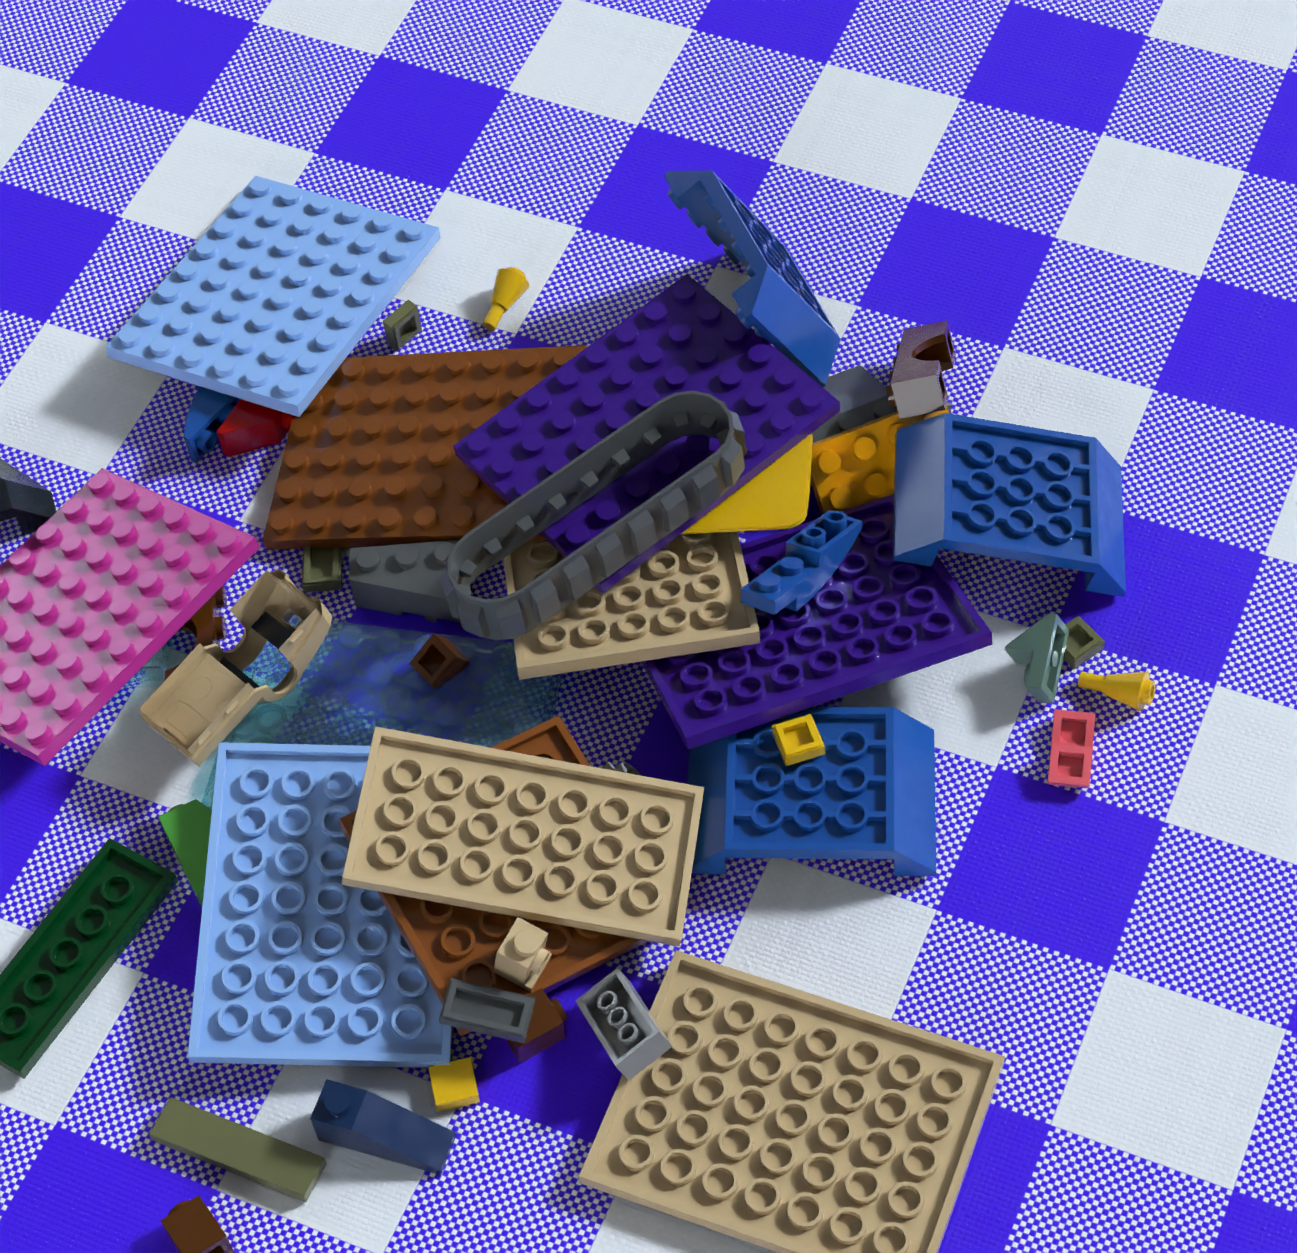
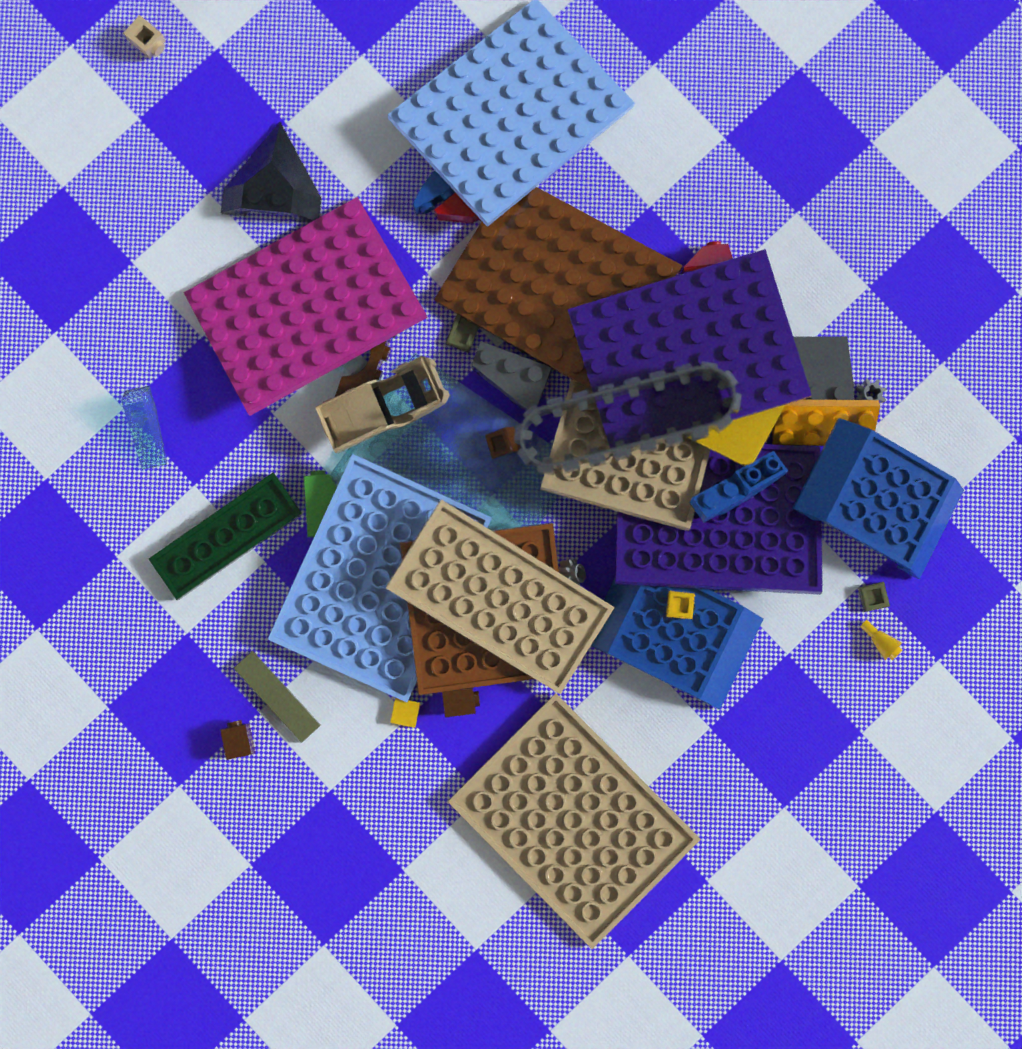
camera: 20 degrees right, 30 degrees up
(380, 1128) = (356, 724): dark blue slope -> none
(402, 325) = (580, 172): olive tile -> none
(487, 1010) = (436, 691): dark grey tile -> none
(508, 288) = (656, 175): yellow cone -> none
(522, 955) = (468, 670): tan brick -> none
(623, 1024) = (507, 728): light grey piece -> none
(777, 294) = (820, 304): blue slope -> none
(917, 375) = (868, 395): arch -> none
(1043, 652) = (853, 599): sand green slope -> none
(1071, 748) = (833, 667): coral slope -> none

